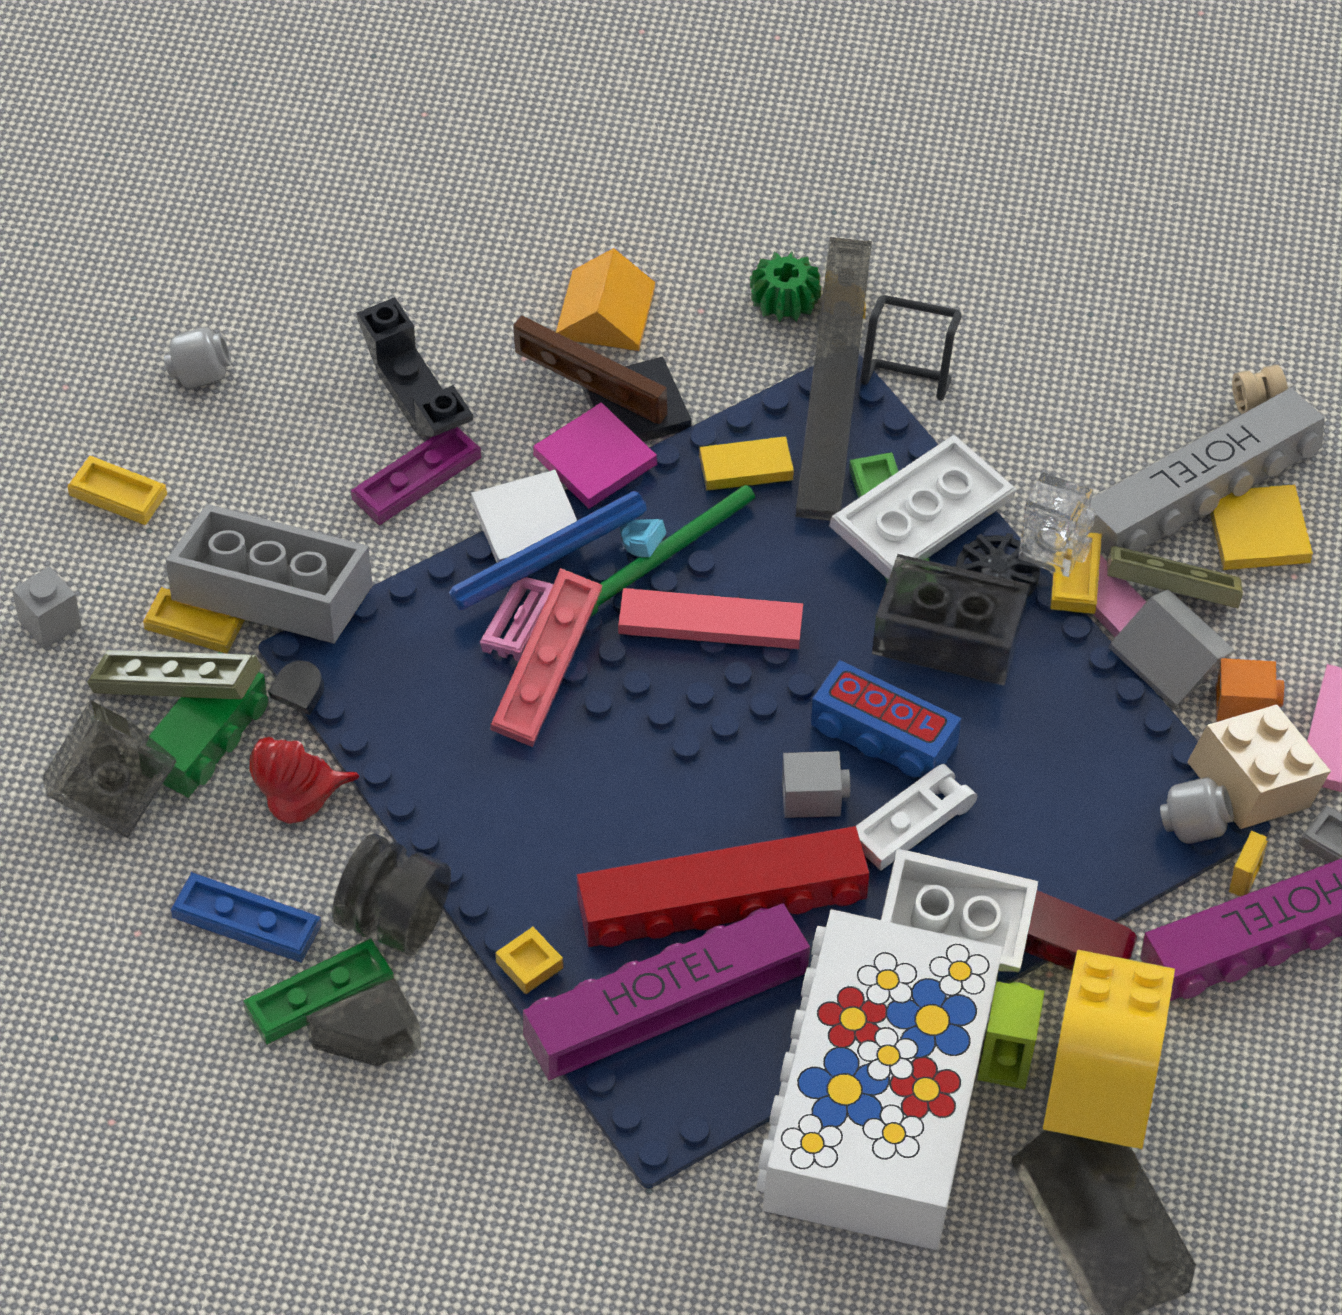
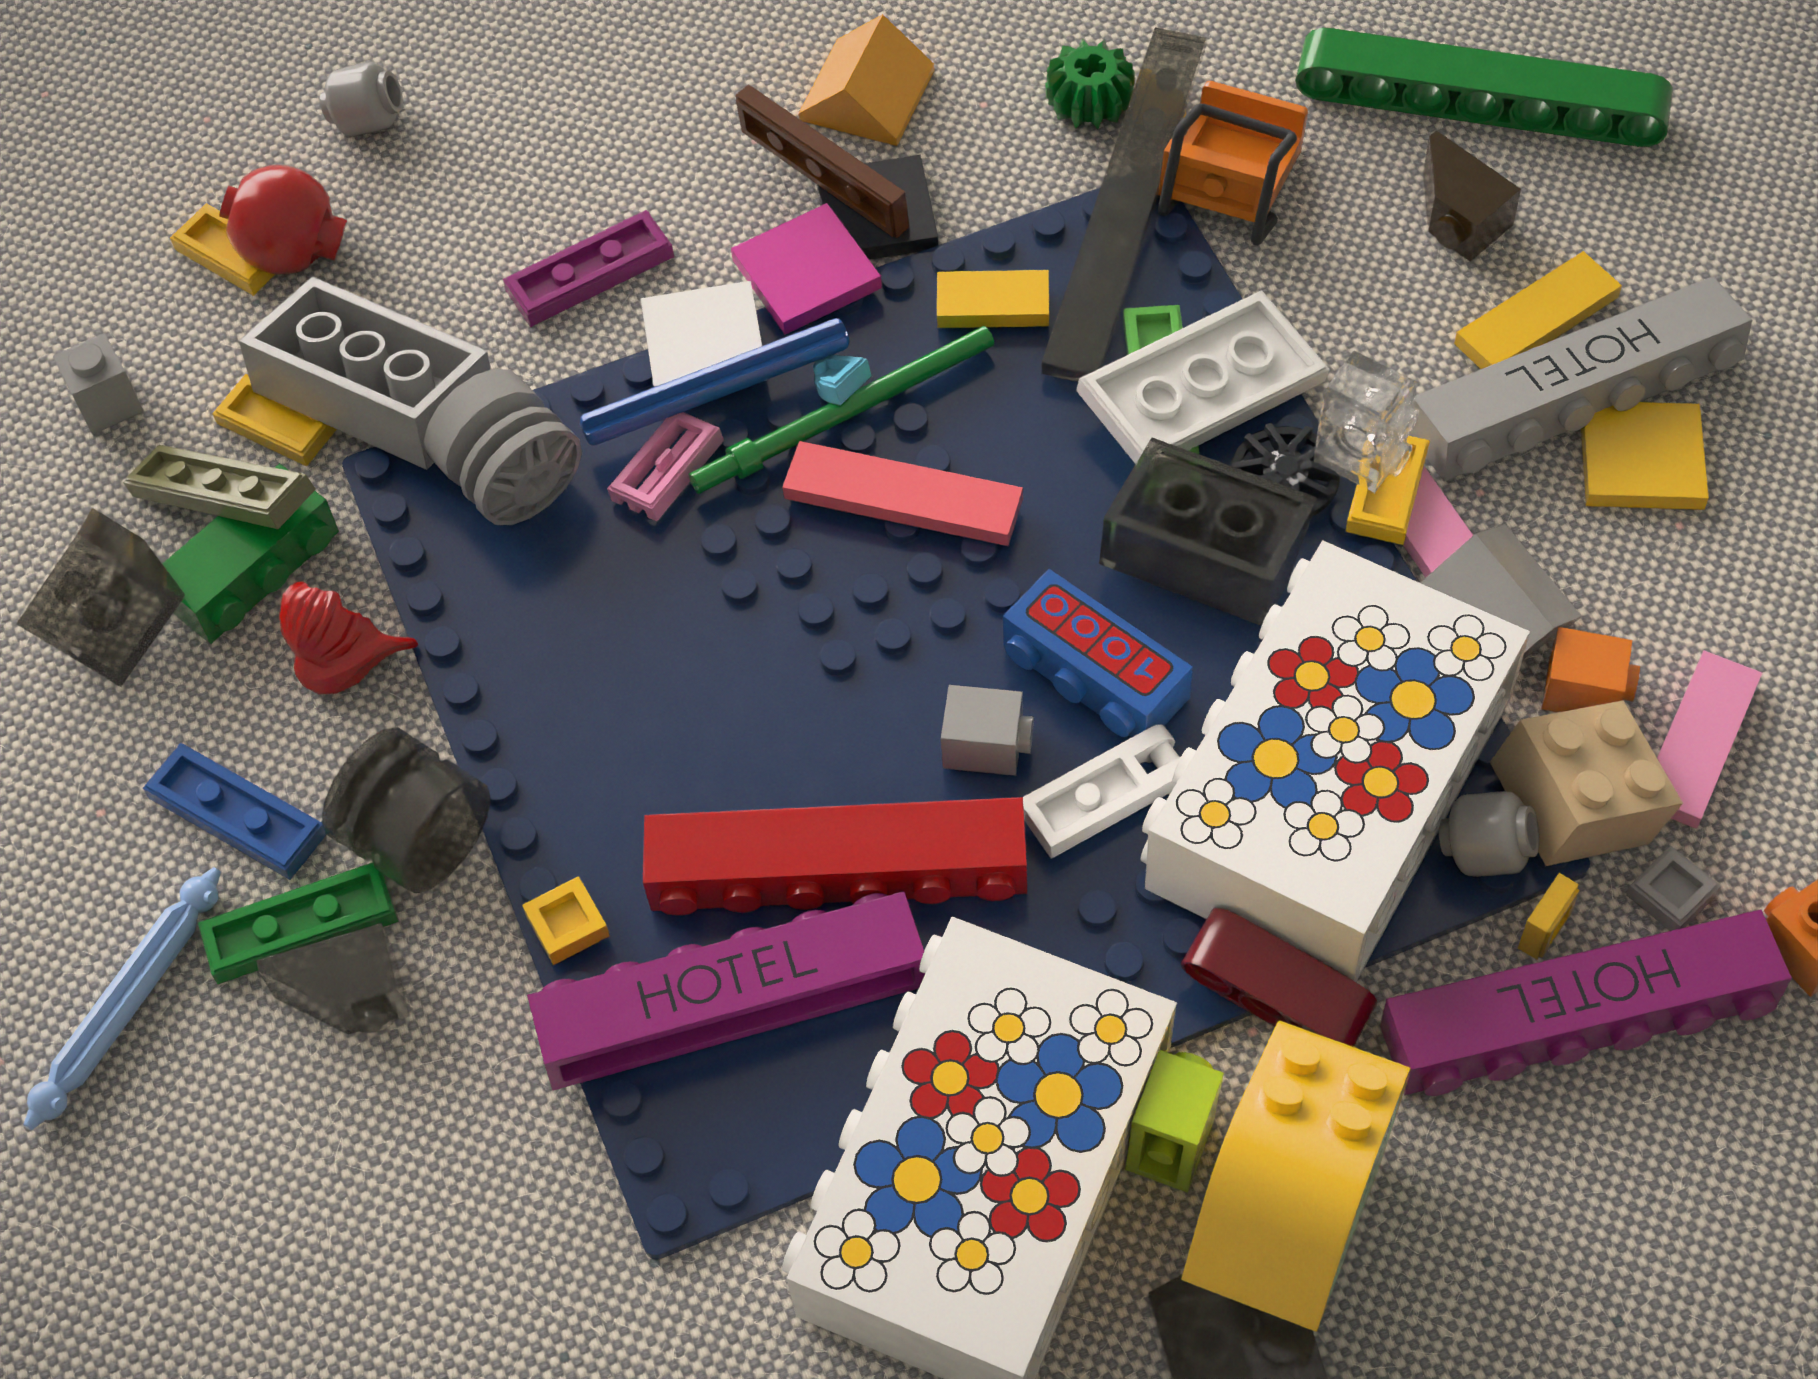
camera: 15 degrees right, 5 degrees up
(163, 462) = (281, 220): none -> red brick
(199, 1062) = (121, 999): none -> light blue wheel
(298, 686) = (371, 519): black tile -> none
(397, 618) = (502, 446): none -> light grey wheel
(405, 373) = (604, 139): black slope -> none
(546, 657) = (680, 519): coral tile -> none
(906, 339) = (1227, 164): none -> orange panel
(961, 902) = (1137, 929): white slope -> none
(1079, 763) = (1333, 757): none -> brick
(1091, 258) = (1485, 87): none -> green beam
(1093, 347) = (1465, 198): none -> dark brown slope
(1164, 429) = (1539, 312): none -> yellow tile
(1175, 576) = (1517, 508): olive tile -> none
(1257, 388) = (1668, 272): tan wheel -> none

